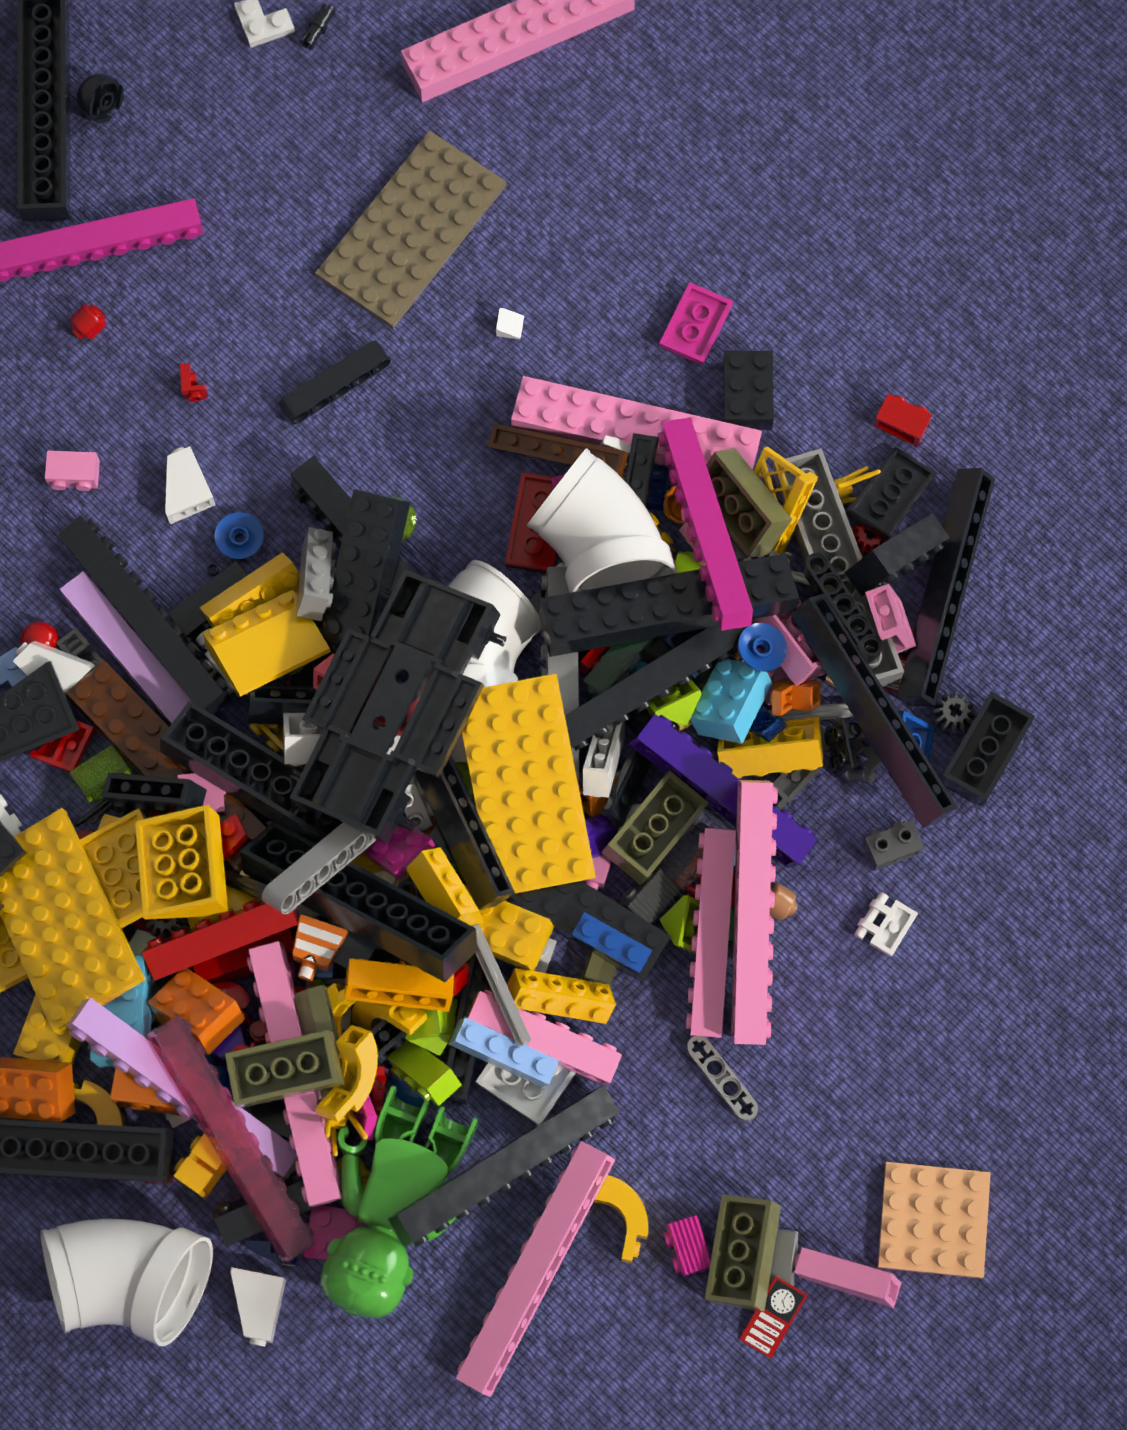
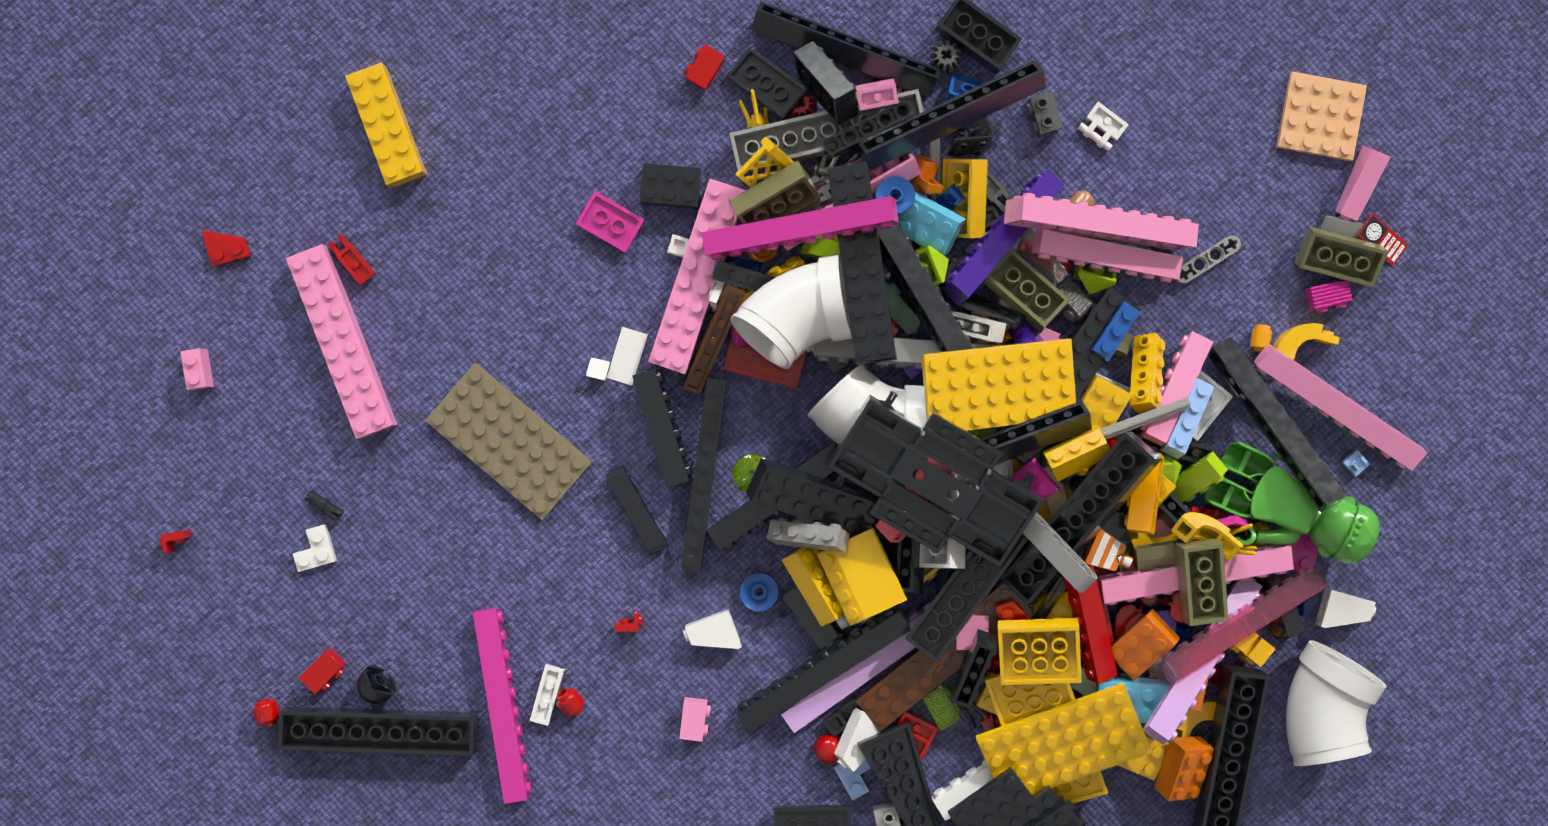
camera: 85 degrees left, 15 degrees up
(103, 295) = (547, 694): none -> white plate
(114, 39) = (323, 670): none -> red brick
(387, 457) = (703, 475): none -> black brick
(441, 399) = (661, 427): none -> black brick
(461, 1306) = (1355, 463): none -> light blue tile
(529, 359) = (627, 356): none -> white sticker
(618, 35) = (353, 261): none -> red hinge
(626, 1157) = (1260, 337): none -> light orange brick
(675, 403) = (678, 246): none -> white tile
(787, 59) = (386, 125): none -> yellow brick

